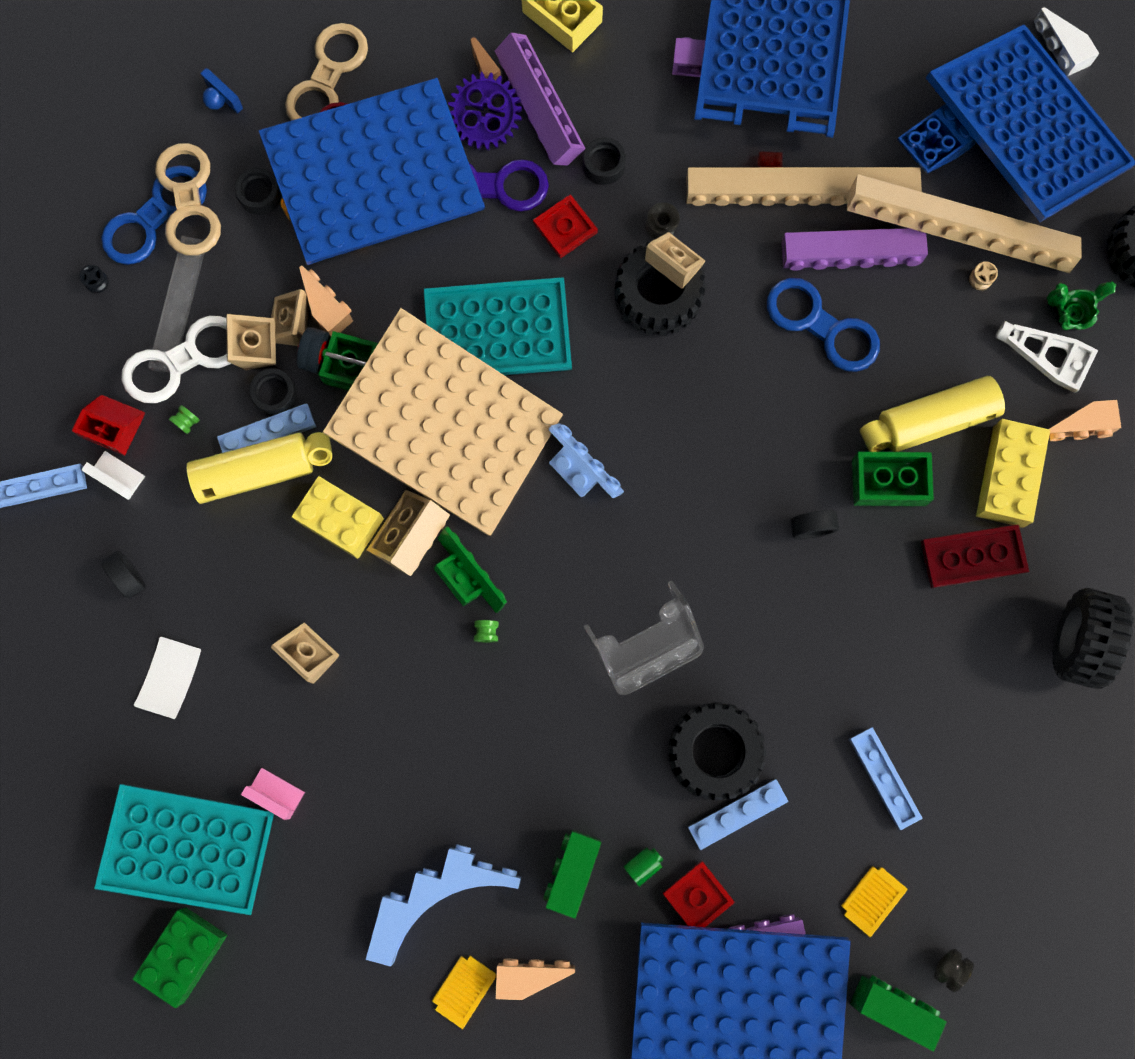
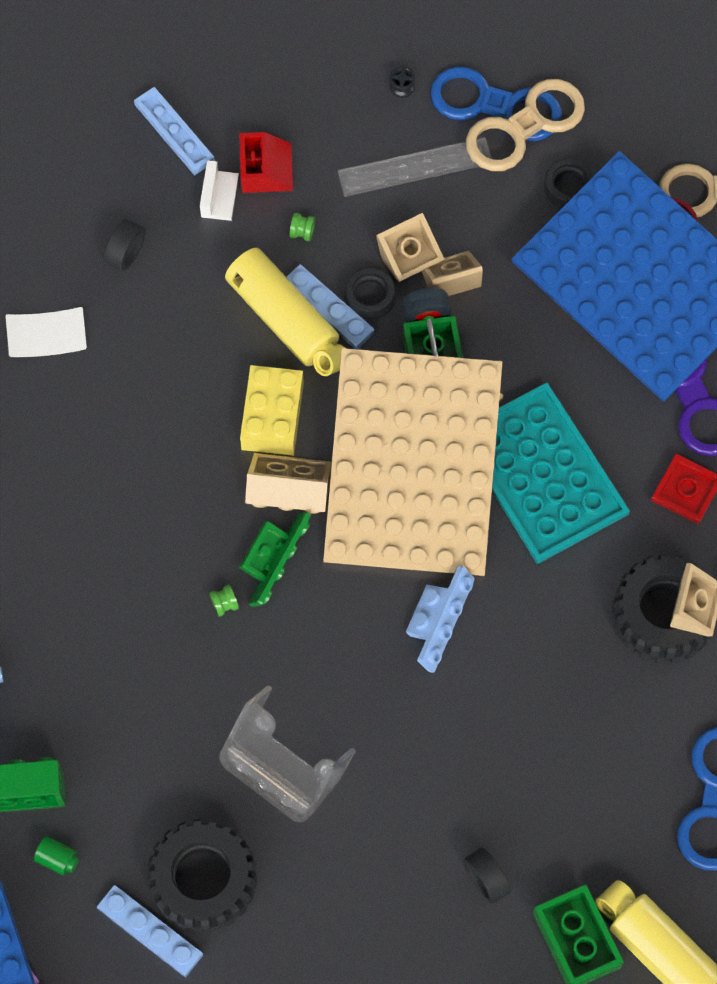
camera: 65 degrees right, 10 degrees down
(177, 360) = (356, 193): white bar -> none
(218, 93) = (650, 101): blue tile -> none
(306, 652) = (124, 442): tan slope -> none
(325, 309) = (478, 300): light nougat slope -> none
(698, 896) = (49, 925): red plate -> none

